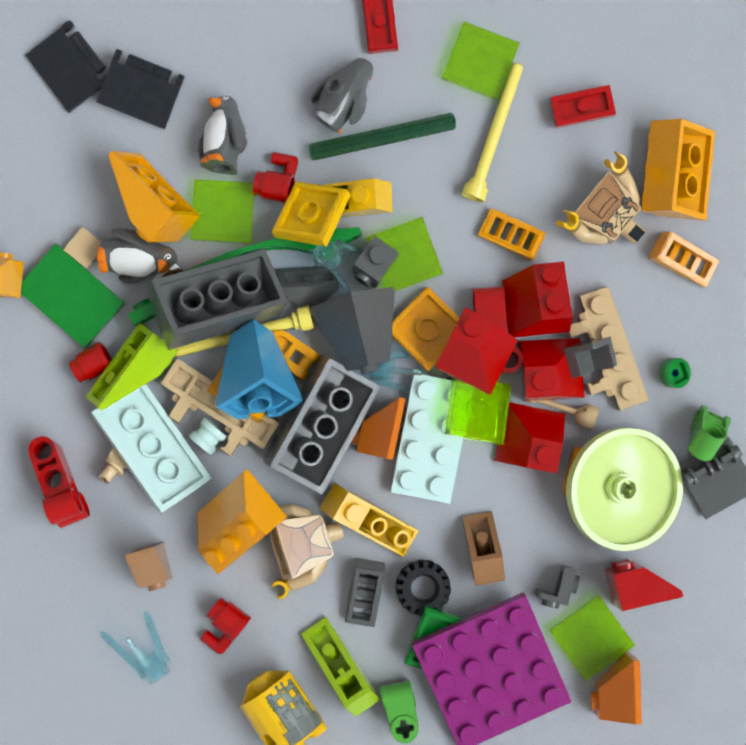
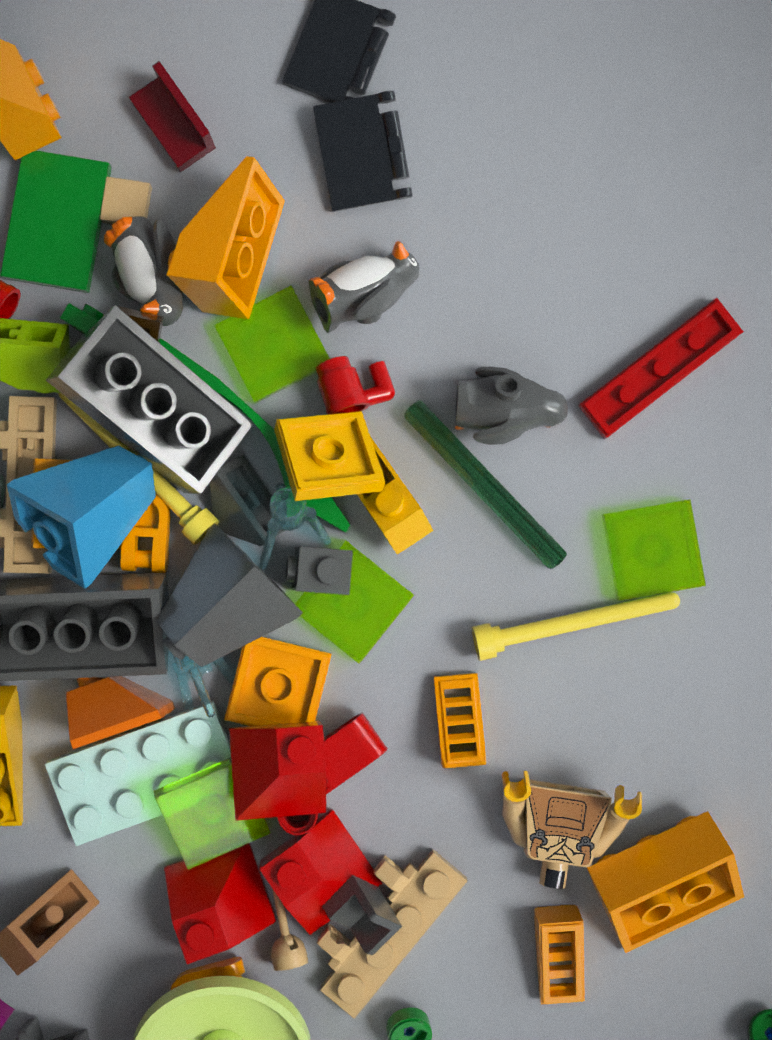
camera: 55 degrees right, 0 degrees up
(52, 189) = (172, 120): none -> dark red panel
(538, 300) = (393, 806): red slope -> none
(582, 106) = (674, 712): red plate -> none

